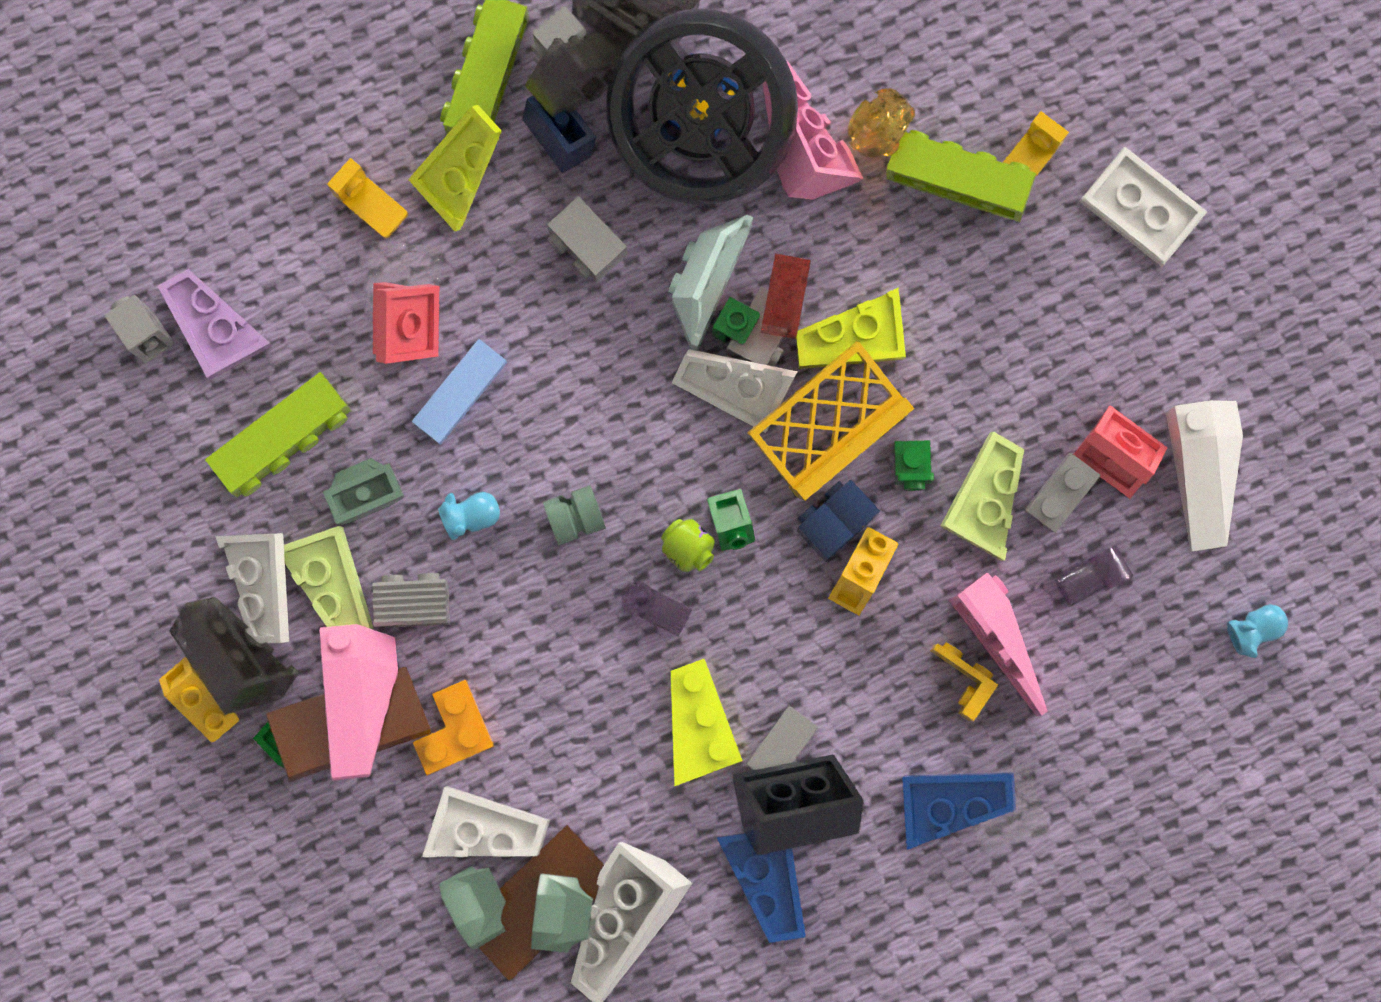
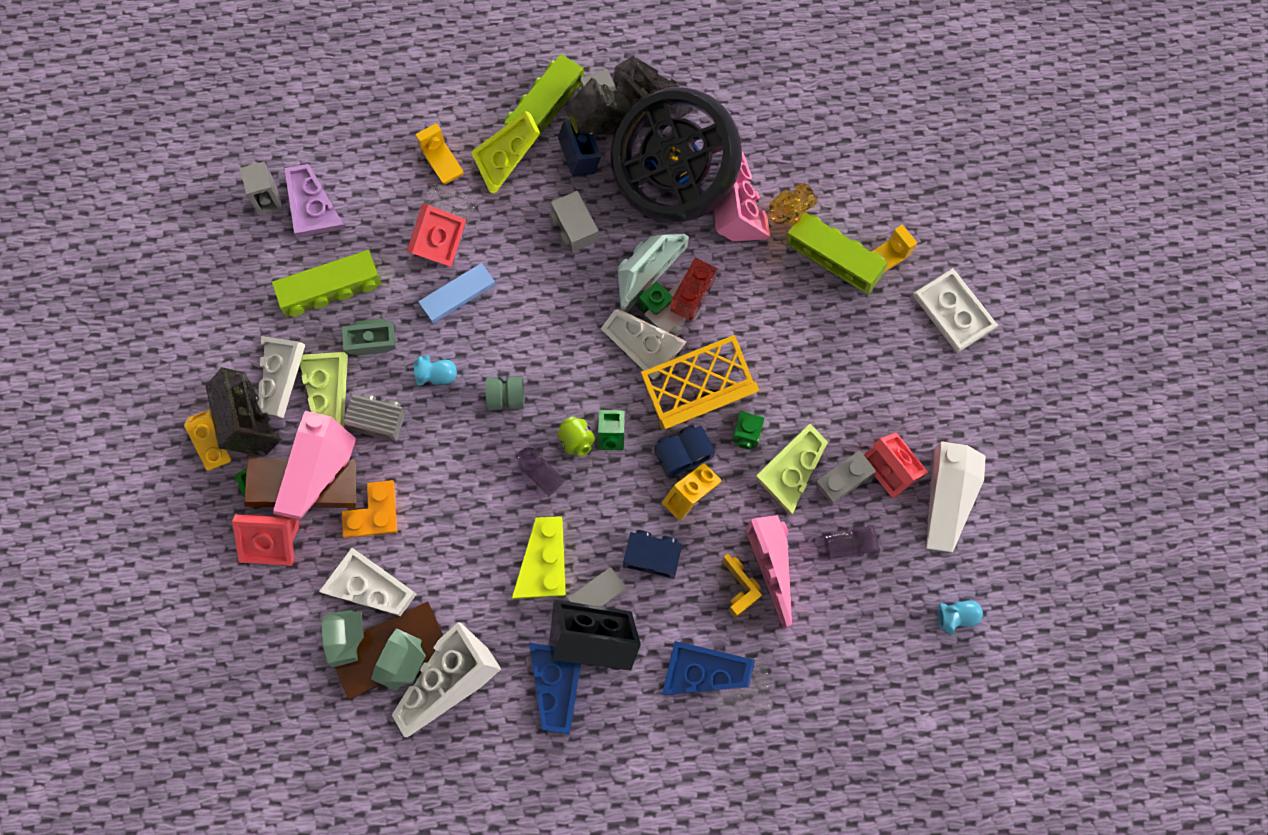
camera: 15 degrees right, 10 degrees down
(326, 811) = (265, 539): none -> coral bracket
(839, 673) = (652, 554): none -> dark blue brick
(872, 323) = (749, 329): neon yellow wing -> none

